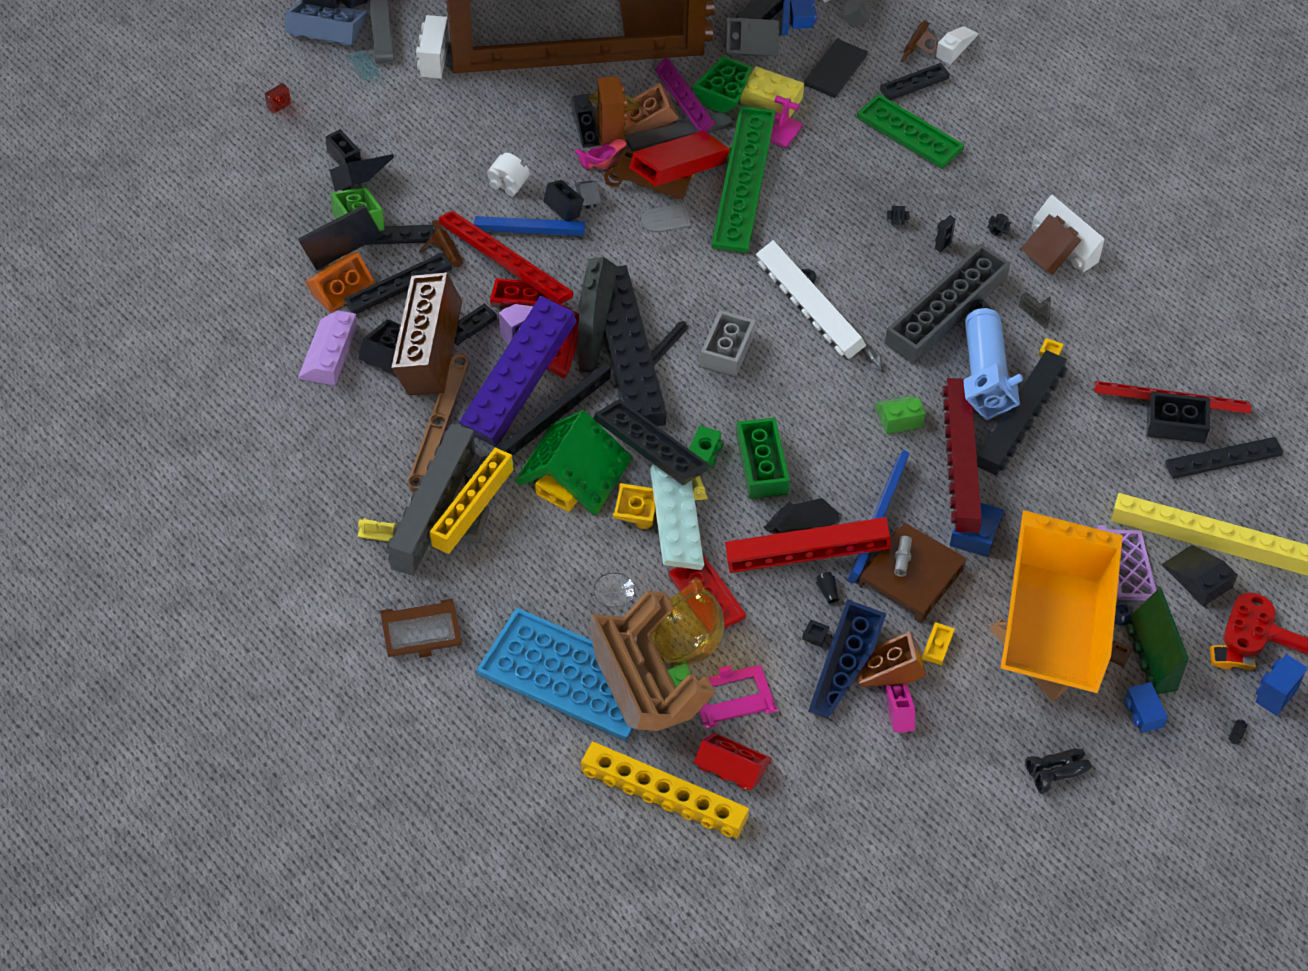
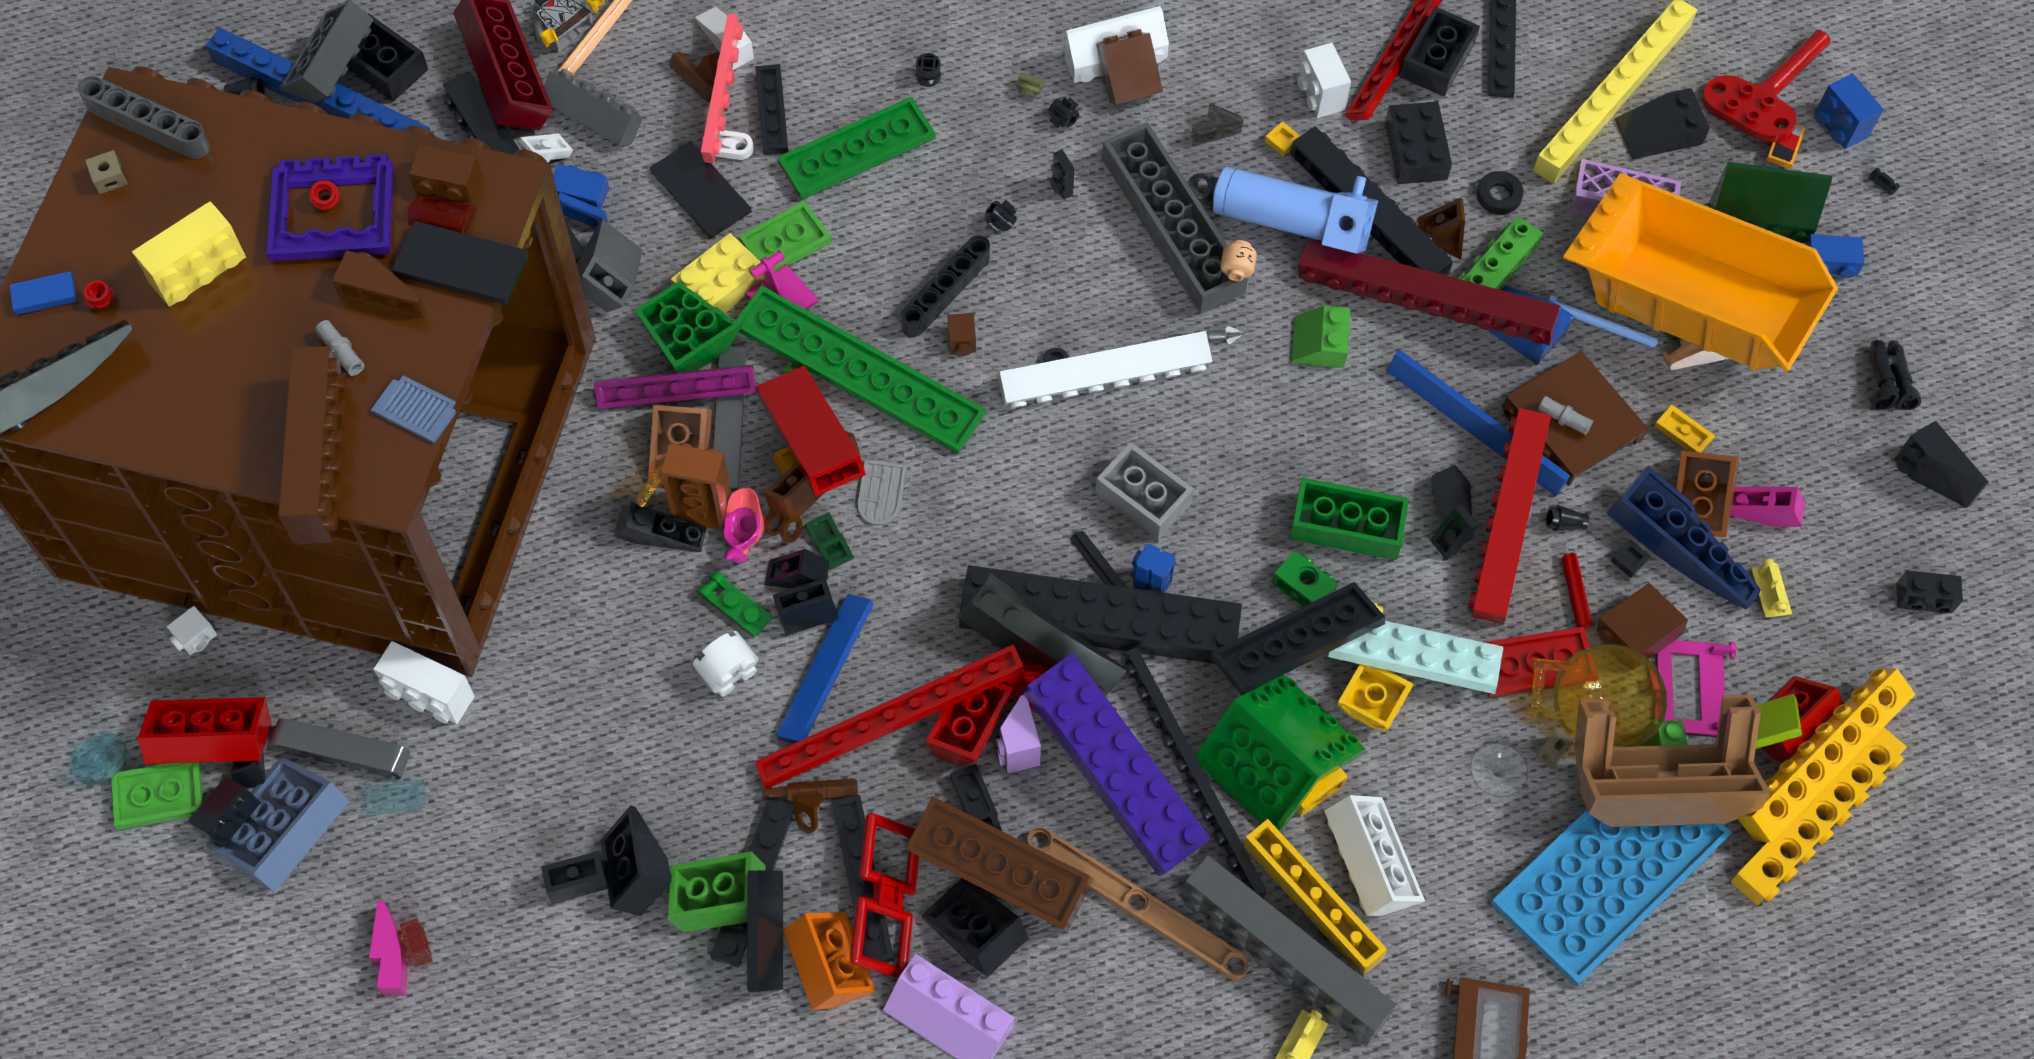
camera: 70 degrees left, 10 degrees up
(256, 94) = (388, 953): none -> dark pink slope
(385, 293) = (886, 898): none -> red bar
(523, 536) = (1373, 855): none -> white slope
(553, 169) = (734, 604): none -> green plate
(618, 203) = (829, 540): none -> dark green slope
(636, 749) = (1828, 752): none -> yellow brick
(668, 361) = (1153, 569): none -> blue brick
(717, 736) = (1778, 721): none -> lime tile
(762, 647) = (1643, 622): none -> reddish brown brick
(775, 608) = (1576, 590): none -> red axle
(797, 221) = (961, 334): none -> reddish brown brick
(822, 117) = (793, 232): none -> bright green plate
(829, 203) = (947, 275): none -> black beam
(834, 727) = (1772, 593): none -> light yellow hinge
(875, 69) = (731, 141): none -> white plate
(878, 825) = (1929, 592): none -> black brick
(906, 44) = (720, 97): none -> coral plate
(921, 334) = (1238, 260): none -> light nougat head
(991, 147) = (928, 70): none -> black wheel
(993, 799) = (1940, 465): none -> black slope
(1003, 539) = (1607, 324): none -> light blue bar
(1011, 202) = (1030, 84): none -> olive plate
(1016, 496) = (1504, 255): none -> bright green brick
(1031, 461) = (1446, 226): none -> reddish brown slope
(1081, 477) = (1503, 179): none -> black tyre
(1092, 425) = (1418, 142): none -> black brick
(1108, 354) = (1324, 80): none -> white brick

